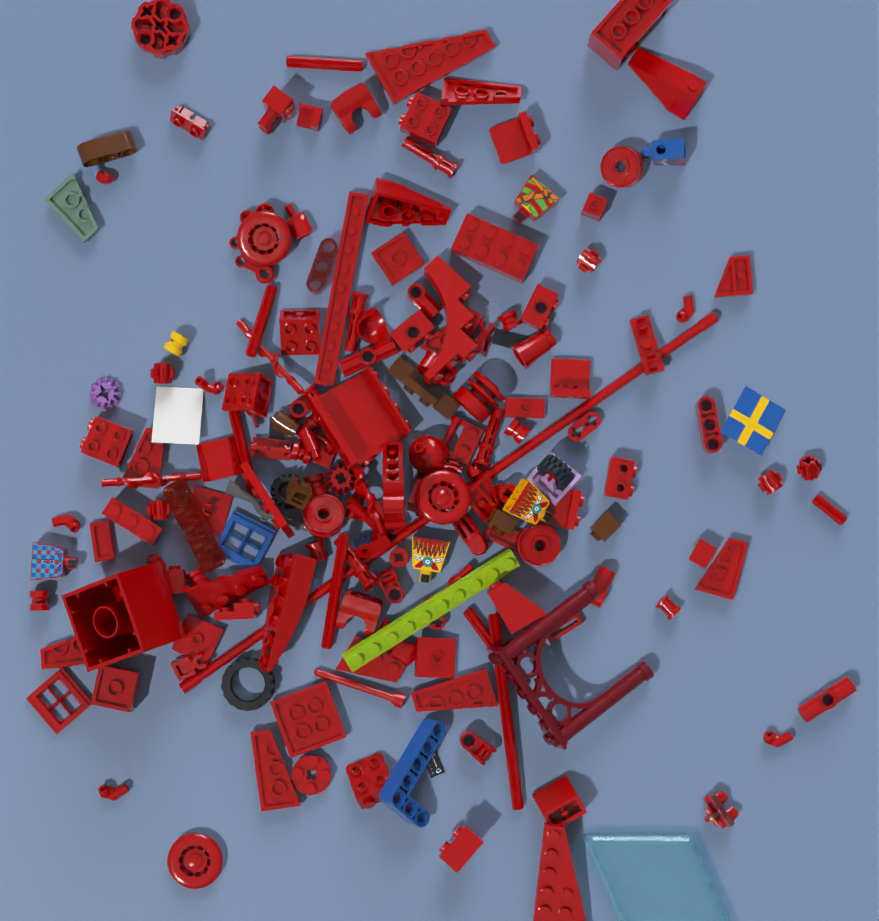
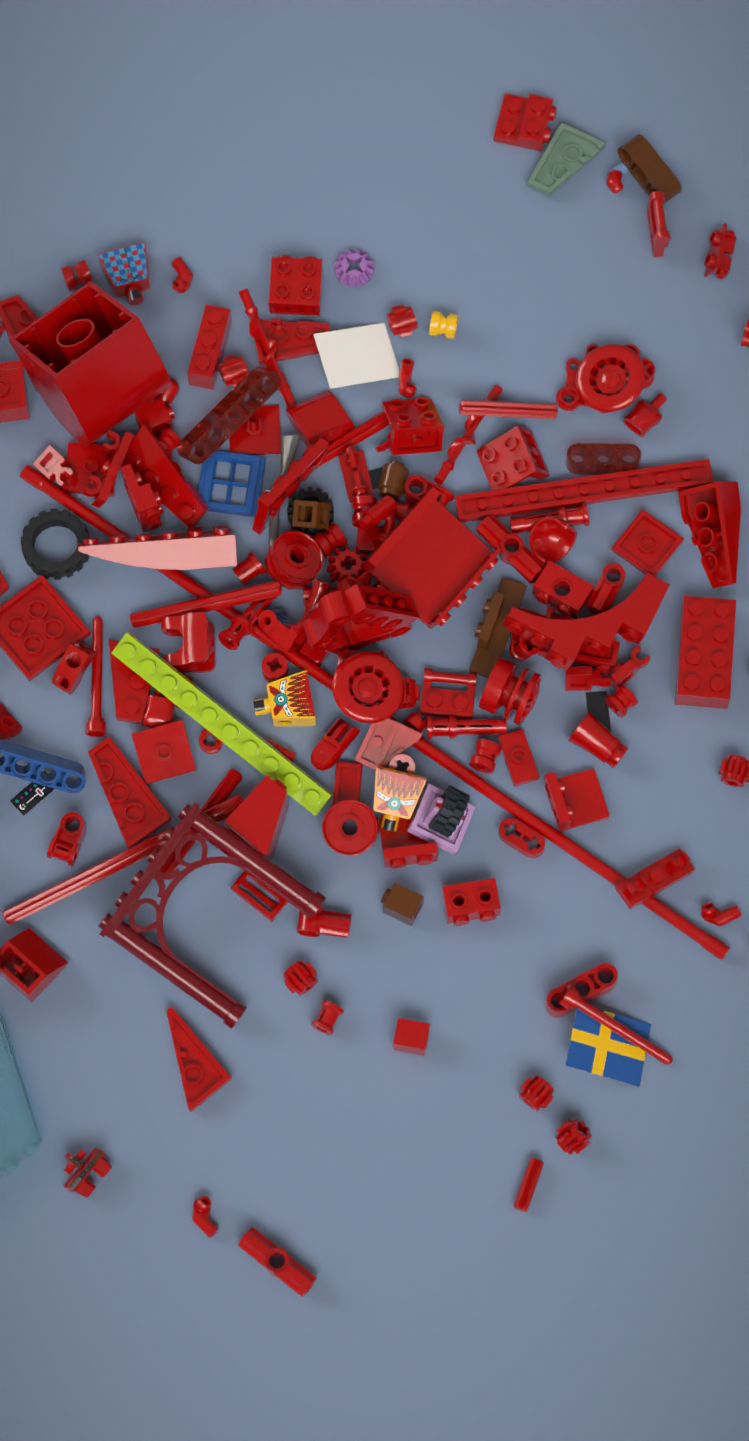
camera: 75 degrees right, 15 degrees down
(32, 225) = (525, 121): none -> red plate
(102, 541) = (173, 323): red tile -> none
(153, 159) = (657, 224): none -> red plate
(206, 626) = (109, 468): none -> red plate
(348, 701) = (73, 666): none -> red leg
(390, 583) = (239, 666): red piece -> none
(428, 454) = (417, 655): red cylinder -> none
(488, 312) = (624, 672): none -> red plate
(501, 522) = (361, 772): reddish brown brick -> none
(540, 296) = (665, 724): red brick -> none
(634, 616) = (300, 977): none -> red gear
(672, 708) = (198, 1068): none -> red wing
(718, 435) = (572, 999): none -> red piece
(725, 570) = (400, 1075): red wing -> none

